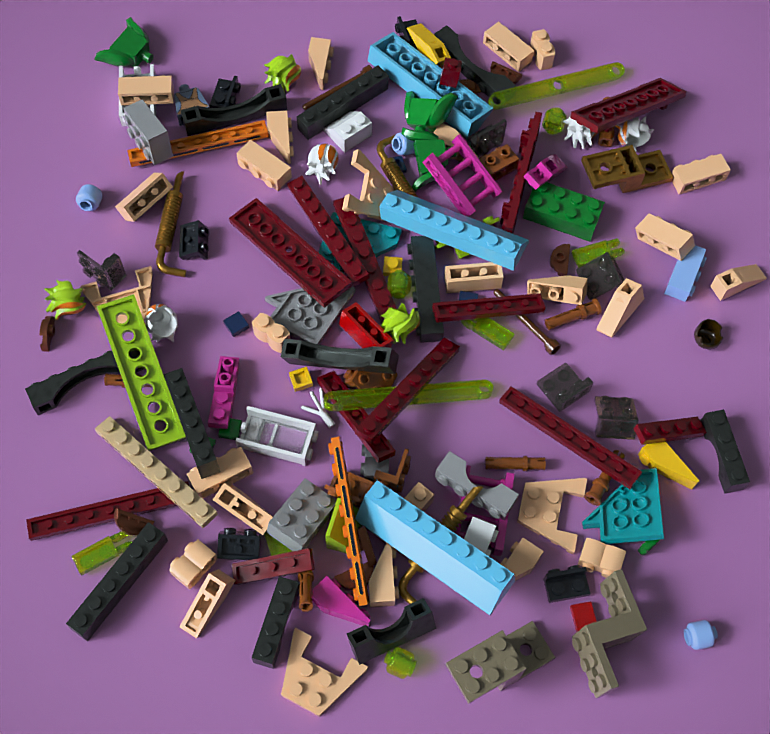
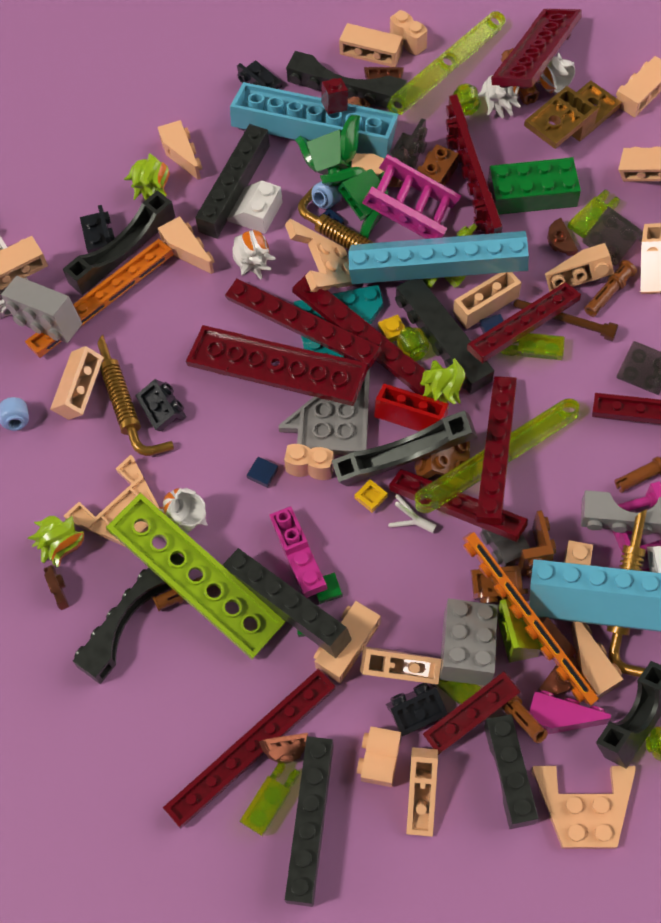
camera: 20 degrees left, 0 degrees up
(107, 274) = (86, 490): clear smoke bracket -> none
(156, 472) = (277, 677): tan plate -> none
(188, 98) = (60, 255): torso -> none
(264, 165) = (188, 286): light nougat brick -> none
(277, 435) = (384, 569): door -> none
(314, 101) = (235, 138): reddish brown piece -> none
(428, 44) = (289, 78): yellow slope -> none
(545, 171) = (495, 154): dark pink slope -> none

